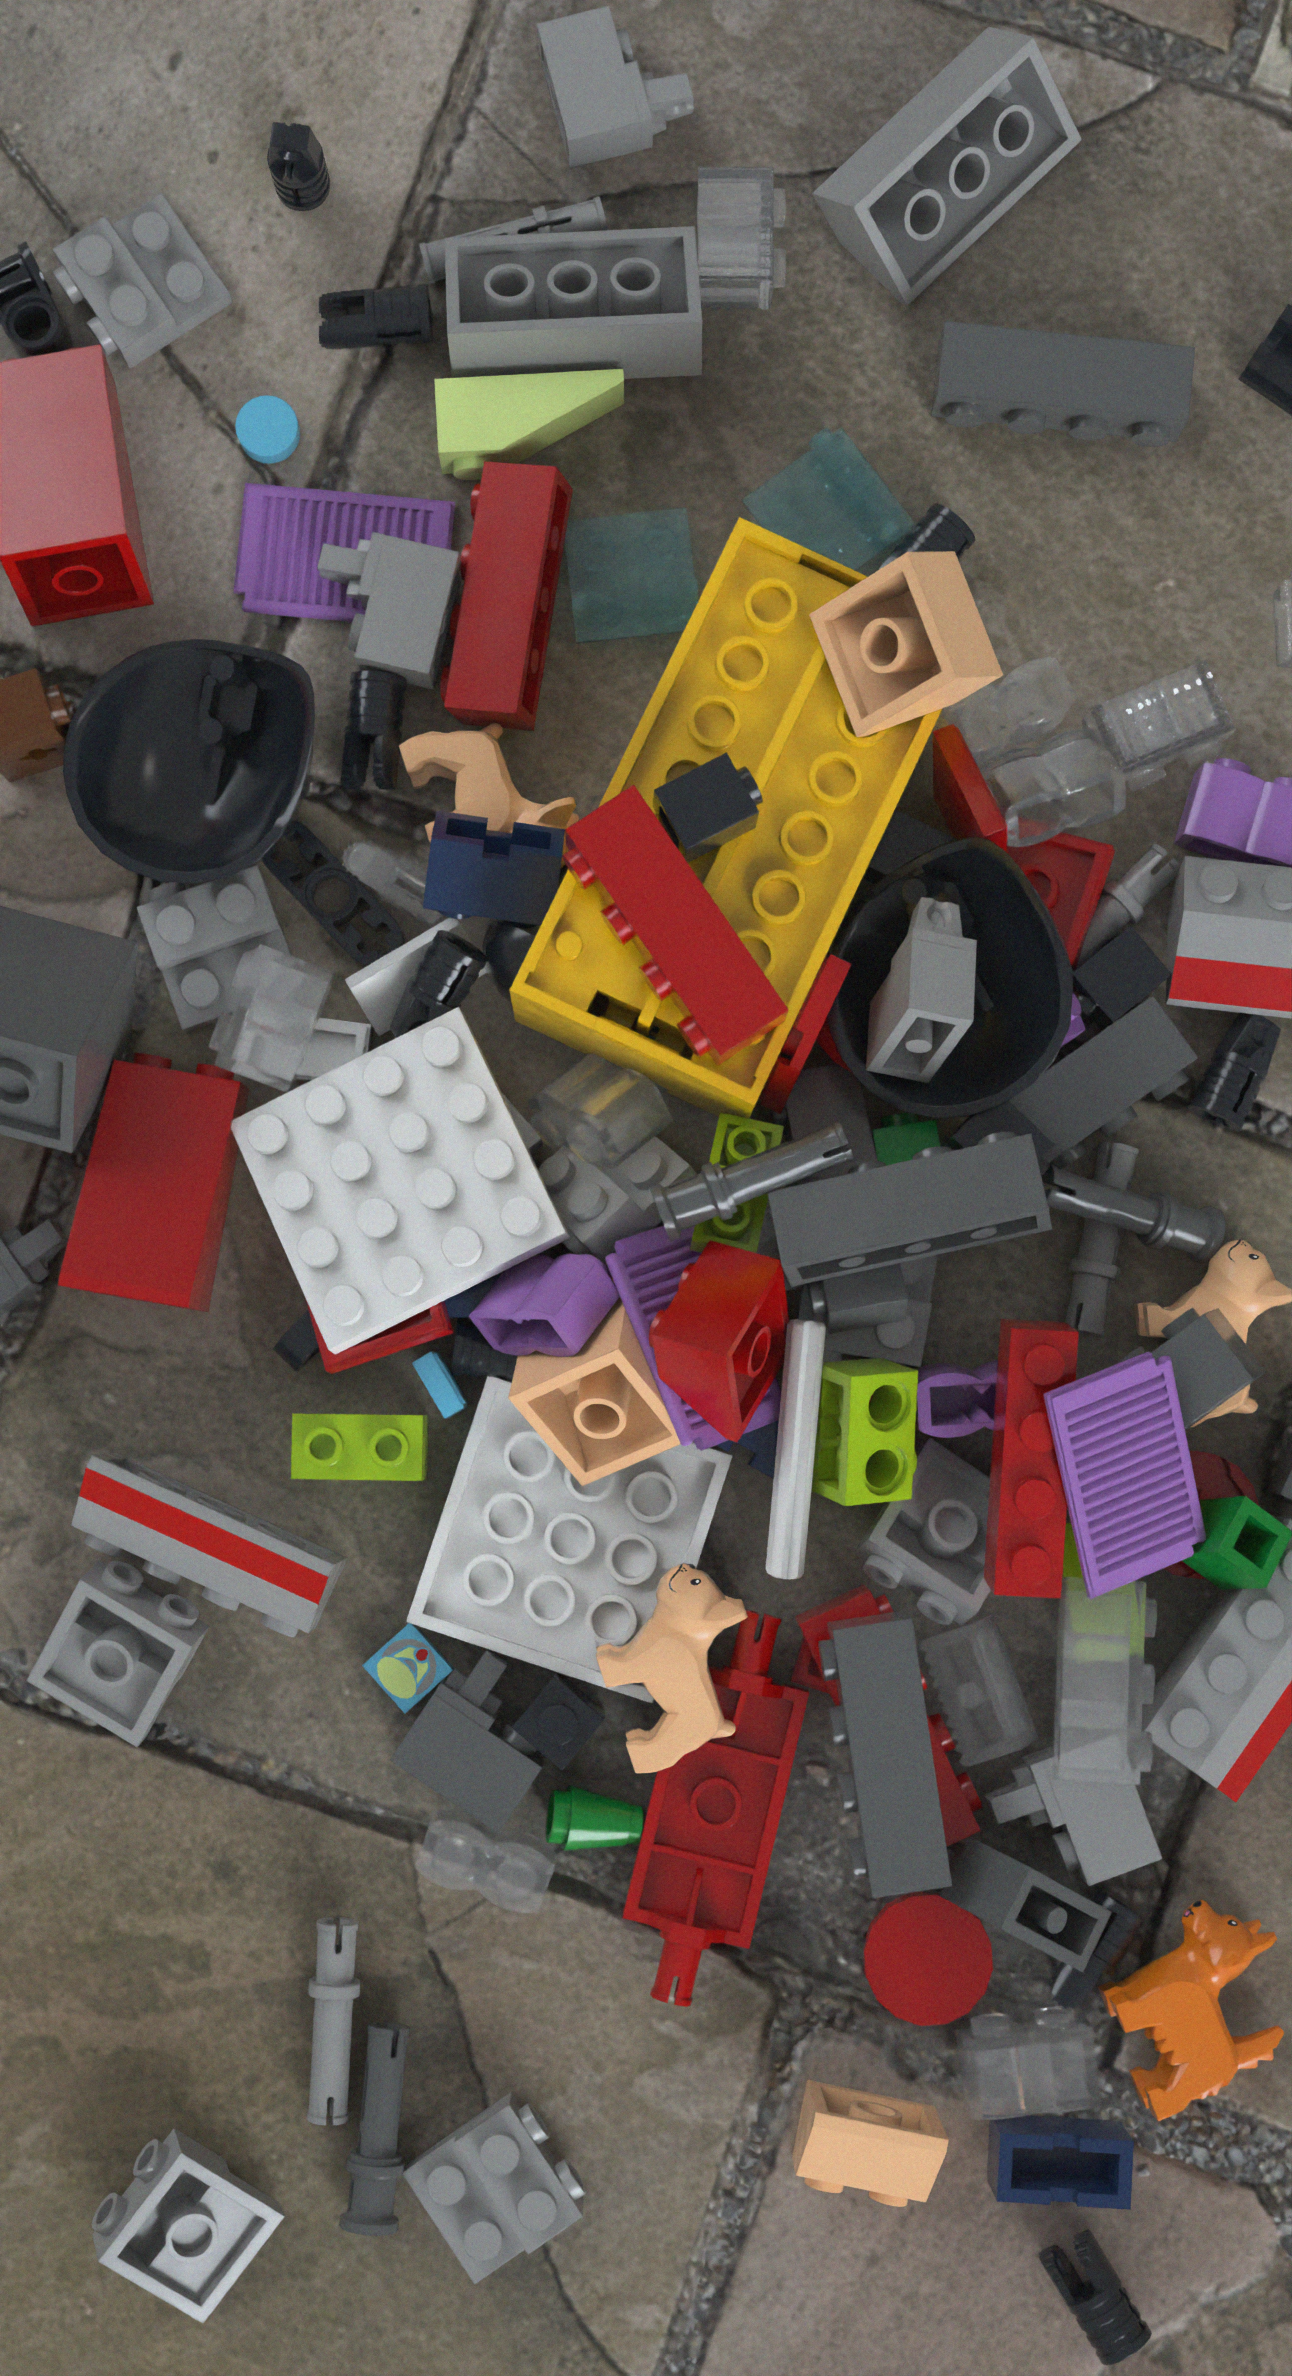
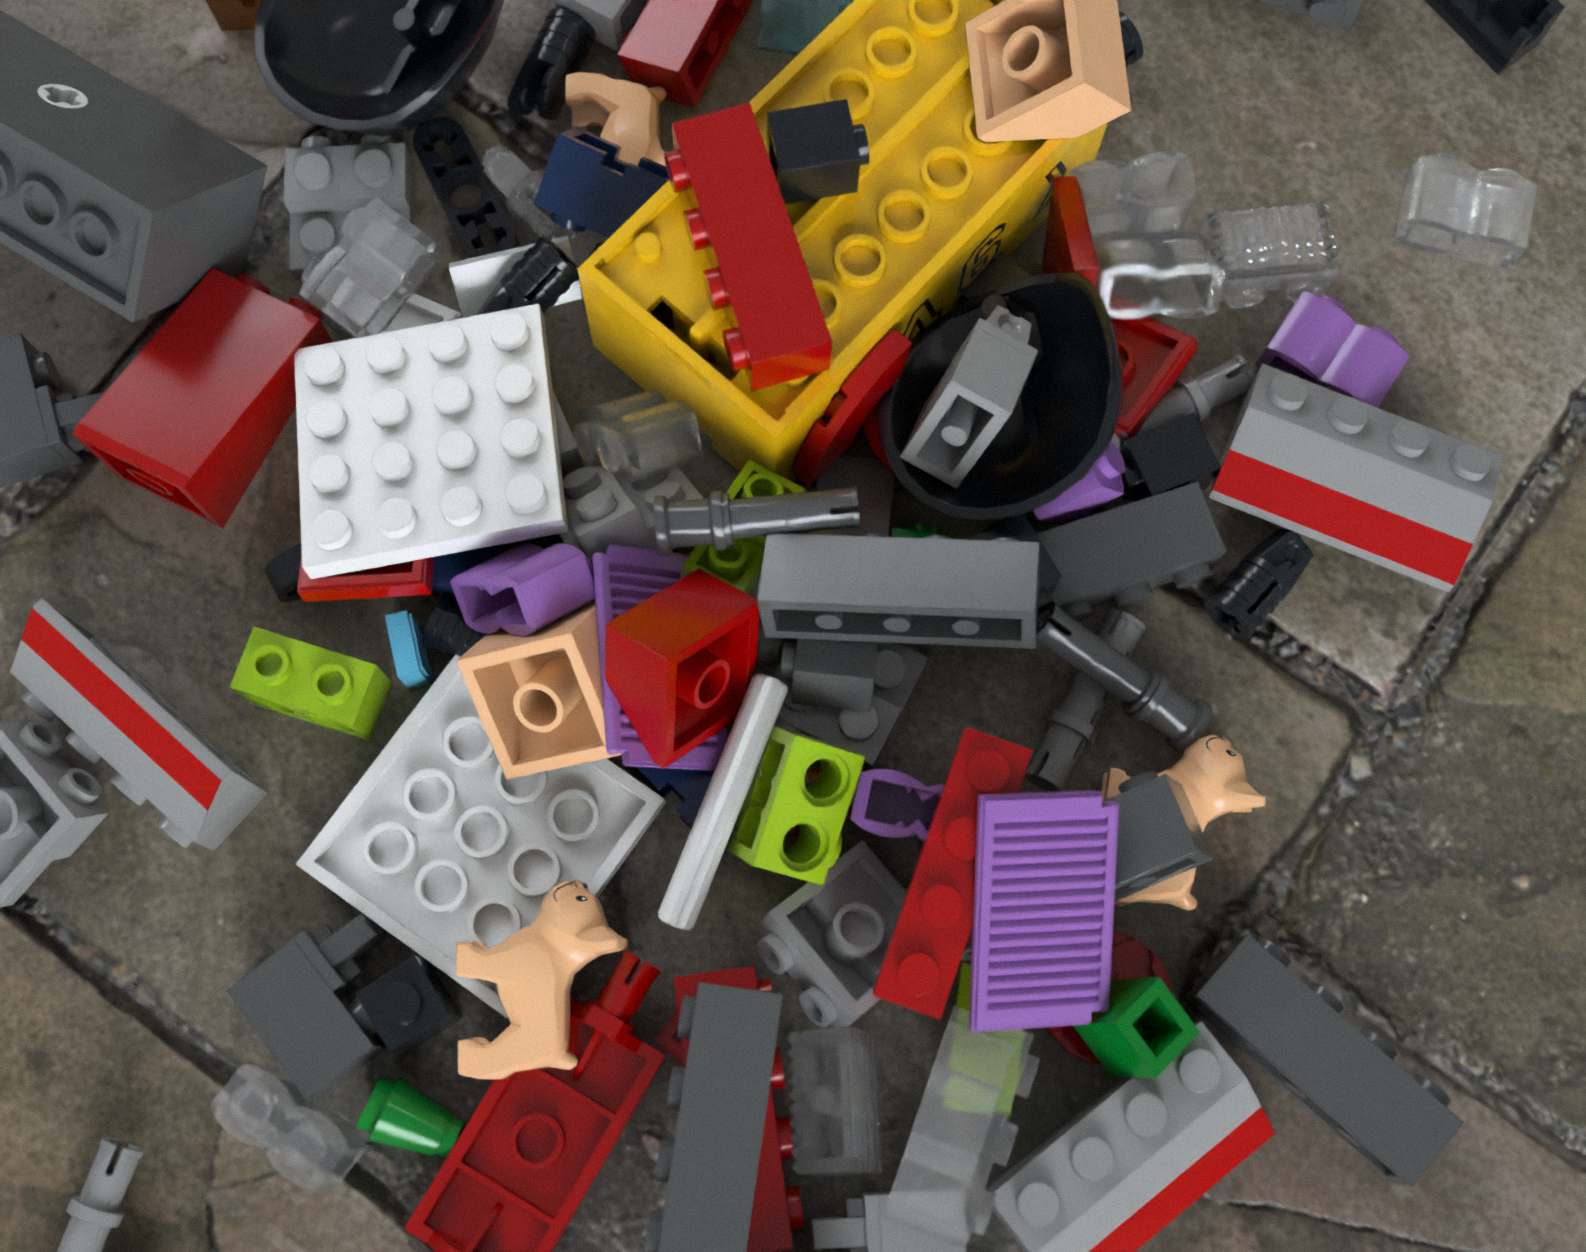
camera: 20 degrees right, 10 degrees down
(408, 1667) = (283, 910): tile -> none

